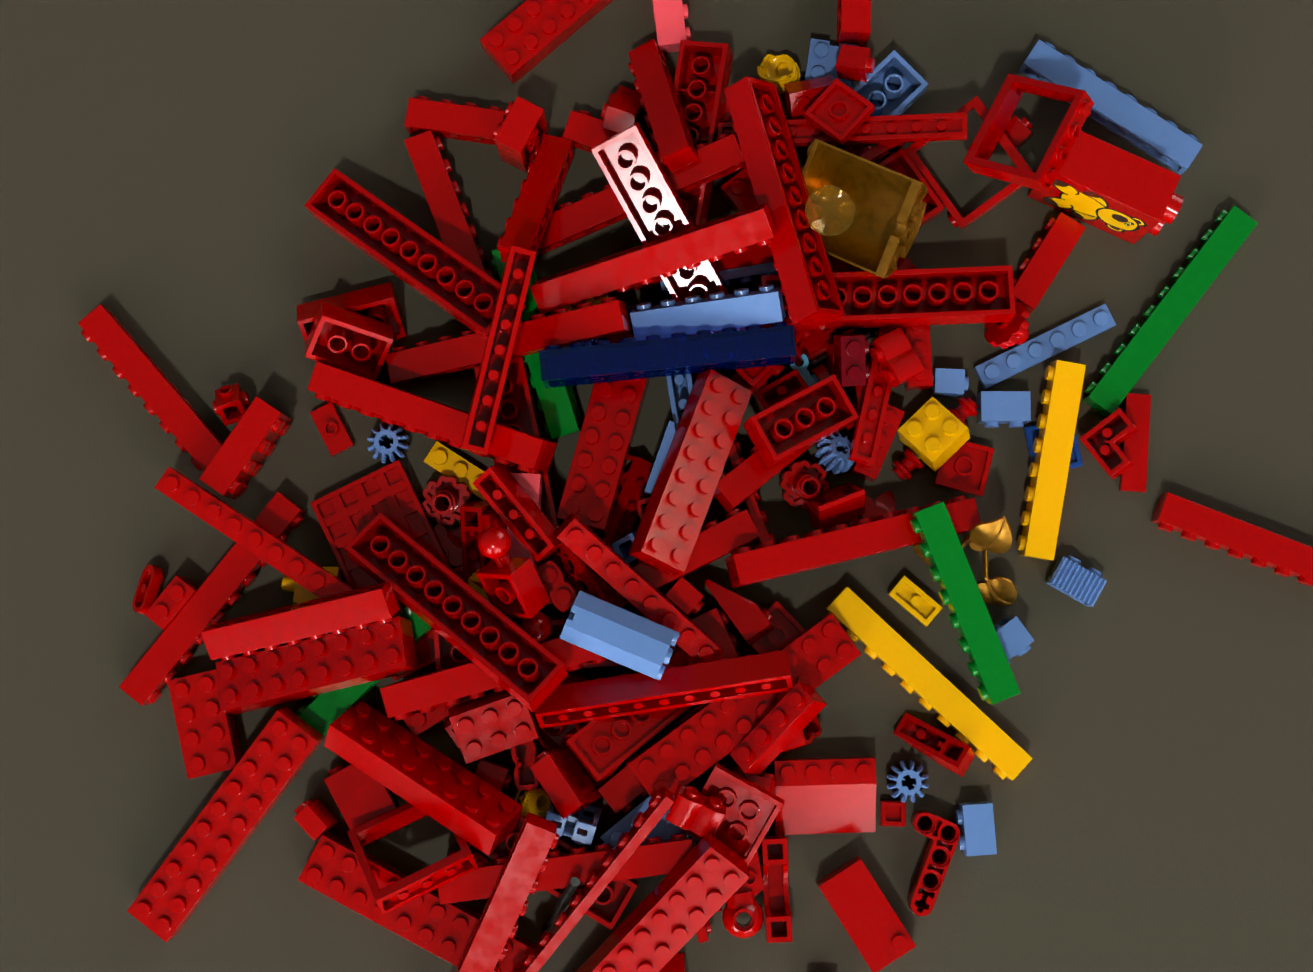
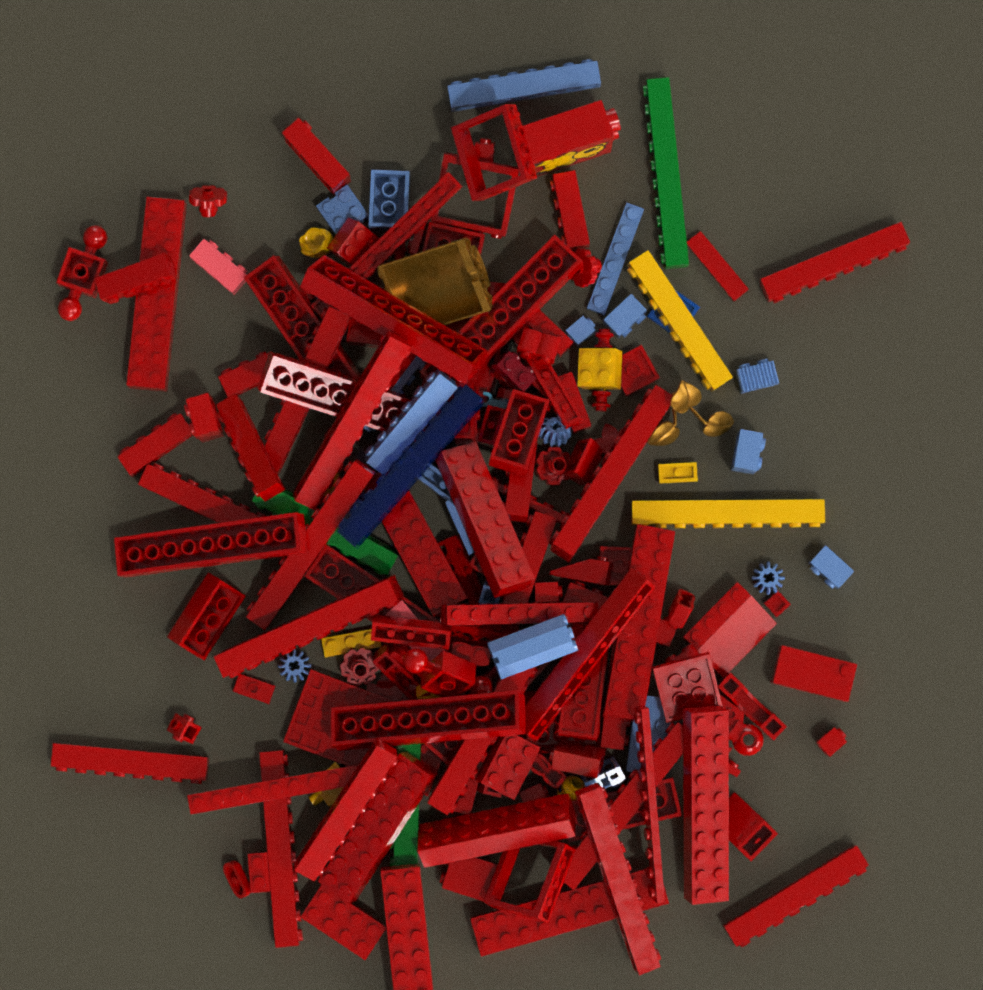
camera: 45 degrees left, 0 degrees up
(245, 449) = (218, 745): red brick -> none
(314, 818) = (457, 914): red brick -> none
(349, 341) = (219, 628): red brick -> none
(498, 350) = (316, 552): red brick -> none
(562, 902) = (640, 825): pearl dark grey bar -> none
(622, 109) = (248, 348): red brick -> none
(662, 106) = (270, 326): red brick -> none
(695, 811) = (666, 703): red brick -> none
(778, 729) = (668, 616): red brick -> none
(830, 210) = (425, 300): clear yellow dish -> none
(839, 111) = (375, 237): red plate -> none
(854, 63) = (356, 199): red brick -> none
(927, 864) = (822, 613): red beam -> none
(935, 744) = (764, 542): red slope -> none
(965, 603) = (704, 448): green brick -> none
(1104, 441) = (698, 281): red brick -> none

